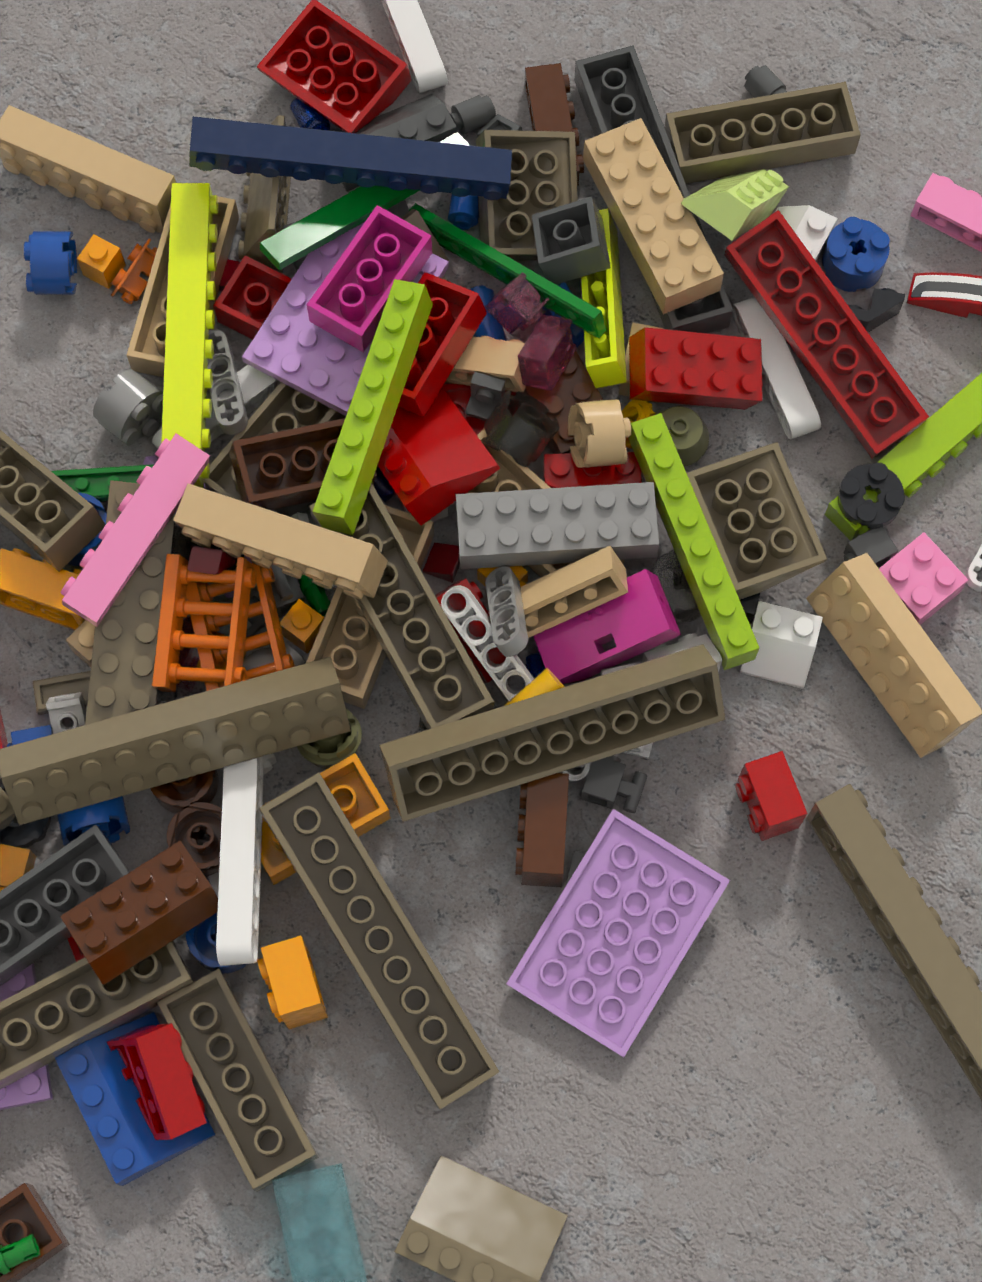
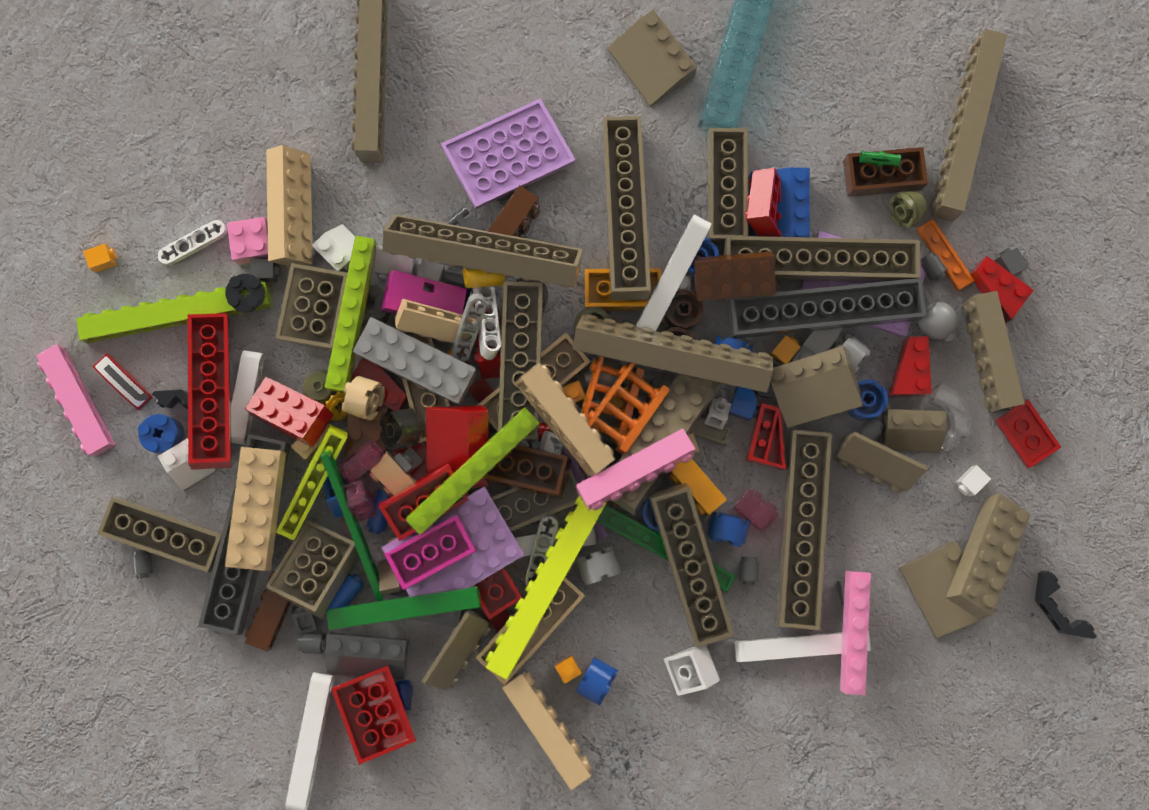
camera: 150 degrees left, 10 degrees up
(129, 281) = (544, 659): orange hinge -> none
(209, 560) = (608, 436): dark red slope -> none
(293, 983) = (678, 209): light orange brick -> none
(349, 158) = (401, 630): dark blue brick -> none
(570, 241) = (309, 517): dark grey brick -> none
(737, 201) = (204, 493): yellowish green slope -> none
(770, 796) = (395, 173): red brick -> none

